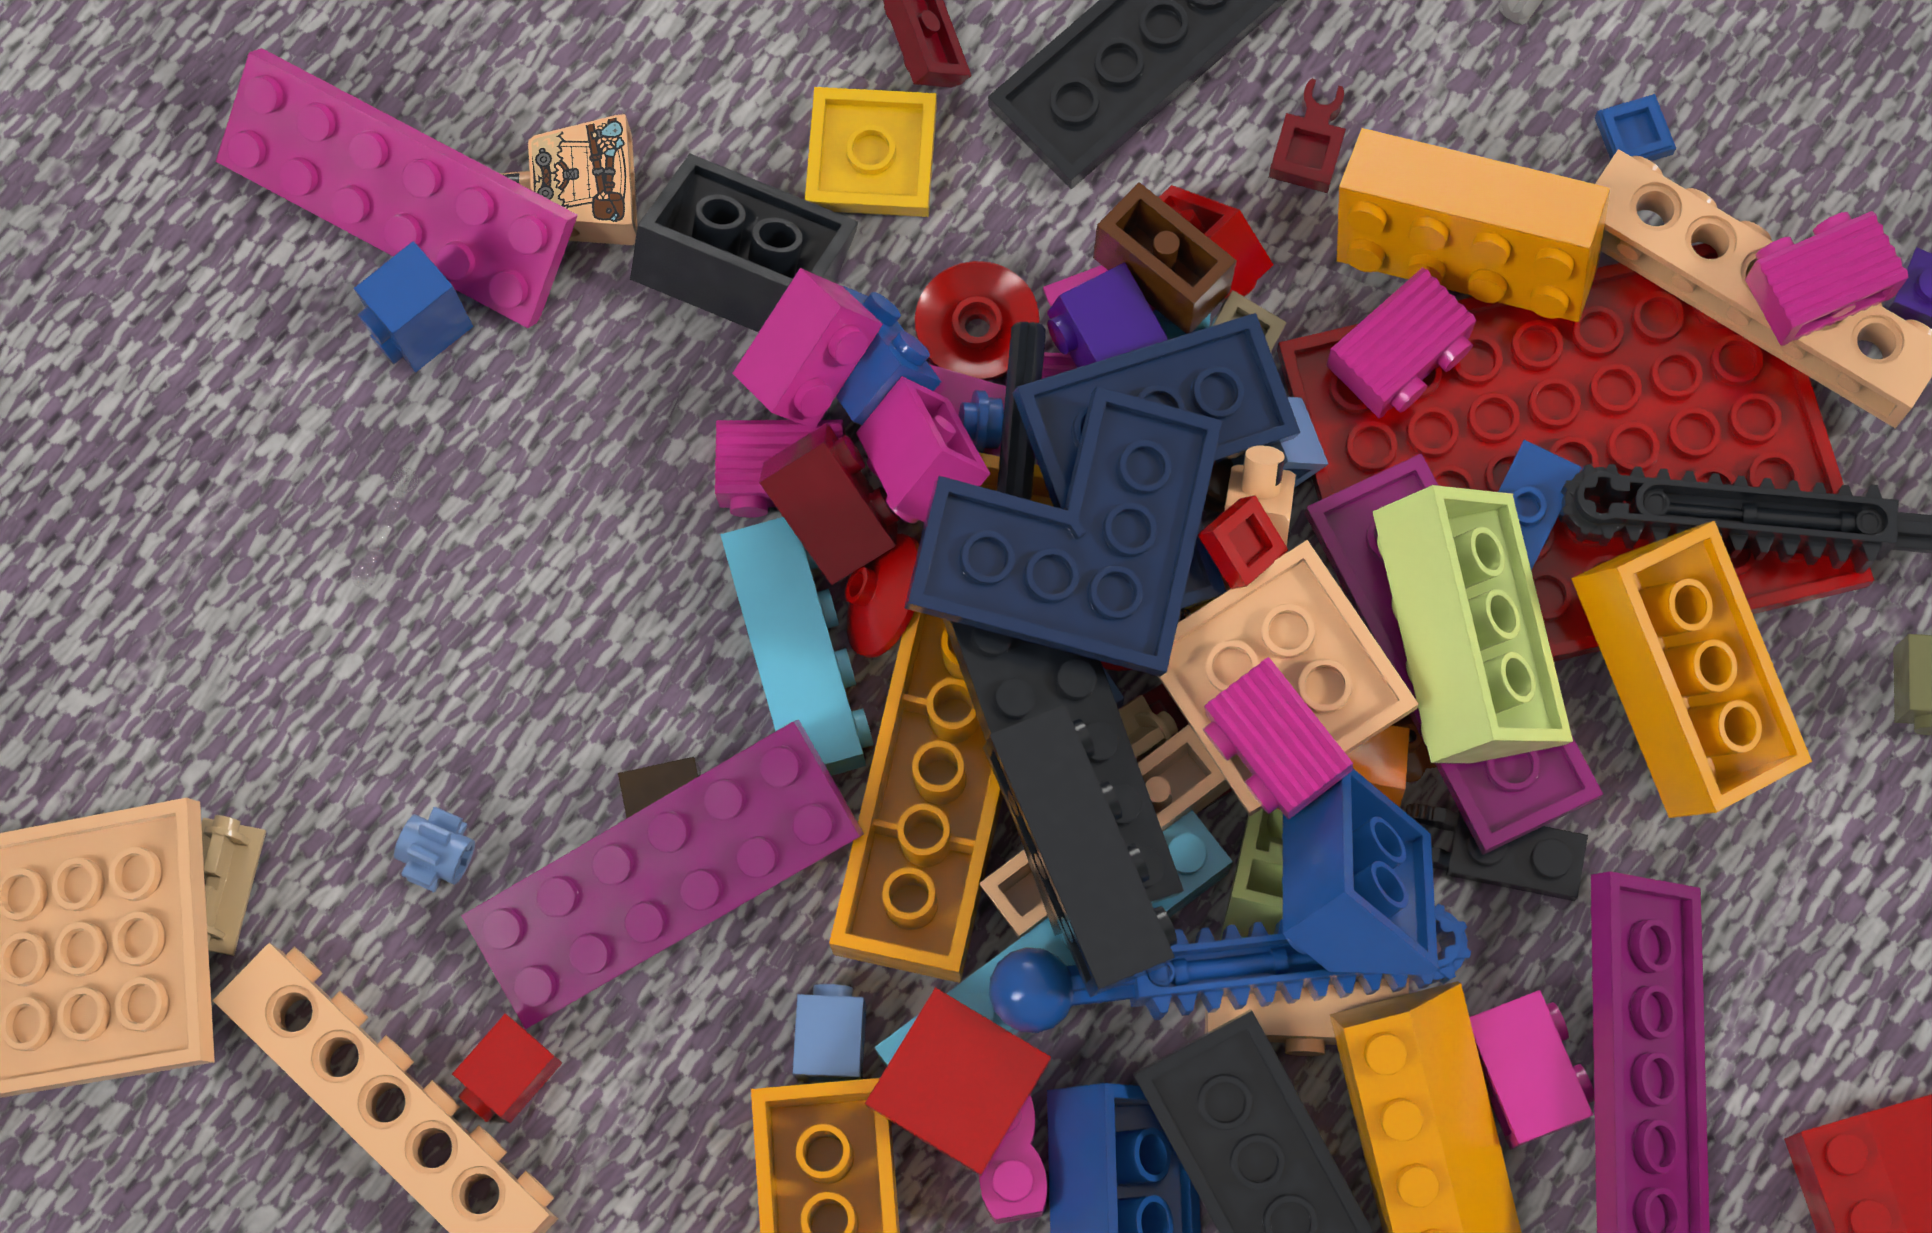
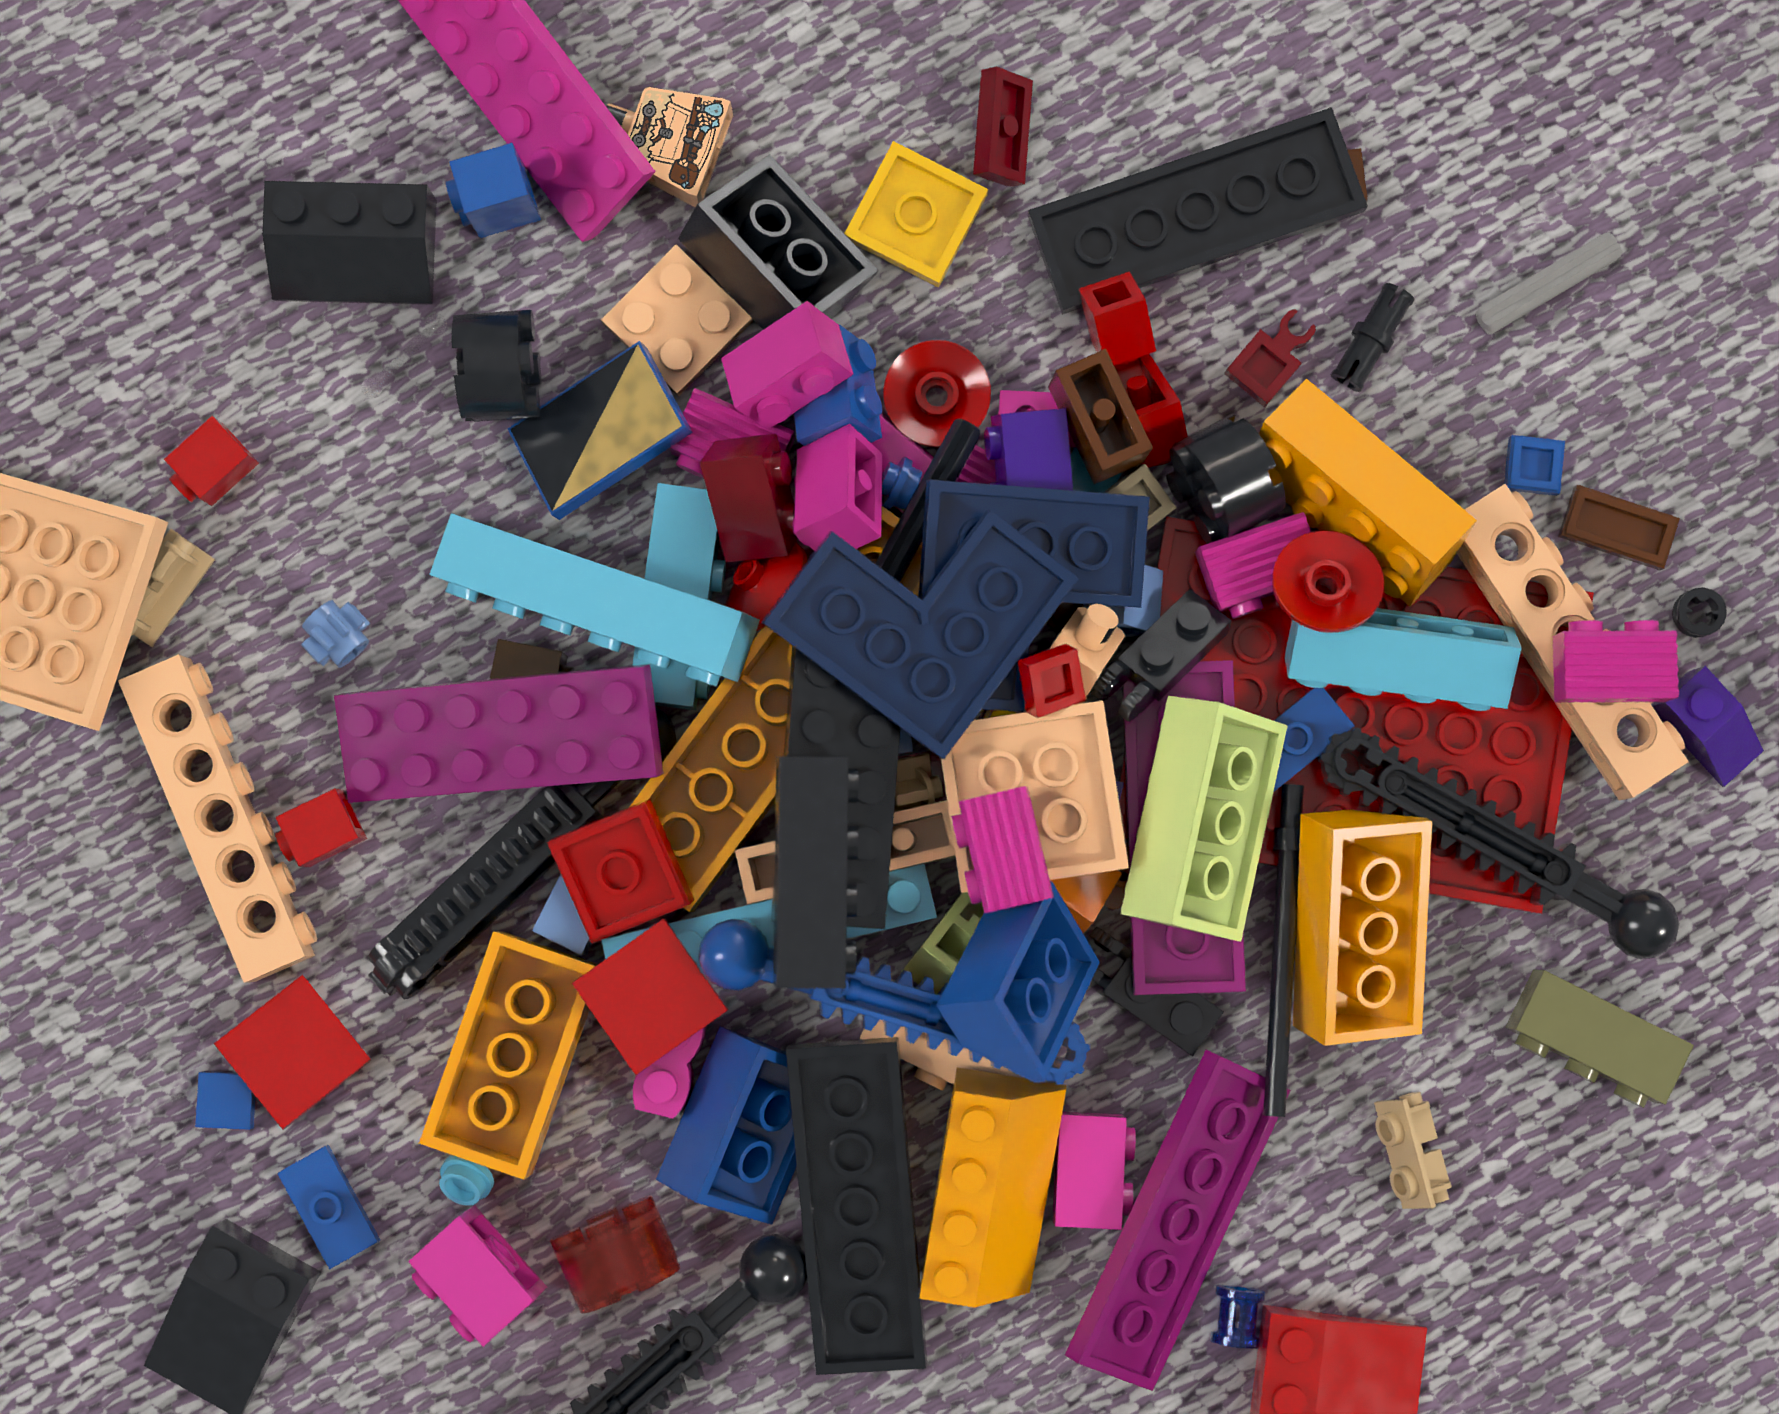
camera: 20 degrees right, 10 degrees up
(218, 725) = (209, 462): none -> red brick
(276, 430) = (349, 242): none -> black slope
(493, 486) = (496, 365): none -> black brick
(632, 509) = (599, 430): none -> tile
(665, 366) = (679, 318): none -> light nougat plate
(706, 682) = (595, 598): none -> medium azure brick
(722, 1044) = (488, 883): none -> black gear
(864, 959) = (621, 871): none -> red tile
(1130, 153) = (1118, 318): none -> red brick
(1324, 269) = (1225, 478): none -> black brick
(1346, 474) = (1164, 654): none -> black hinge
(1405, 74) = (1372, 337): none -> black pin
(1484, 302) = (1331, 561): none -> red dish
(1573, 623) = (1286, 842): none -> black bar
(1596, 369) = (1412, 657): none -> medium azure brick
(1753, 157) = (1619, 527): none -> reddish brown tile
(1769, 1138) = (1248, 1300): none -> clear blue bush
(1842, 876) = (1416, 1176): none -> tan hinge
(1889, 188) = (1697, 596): none -> black bush

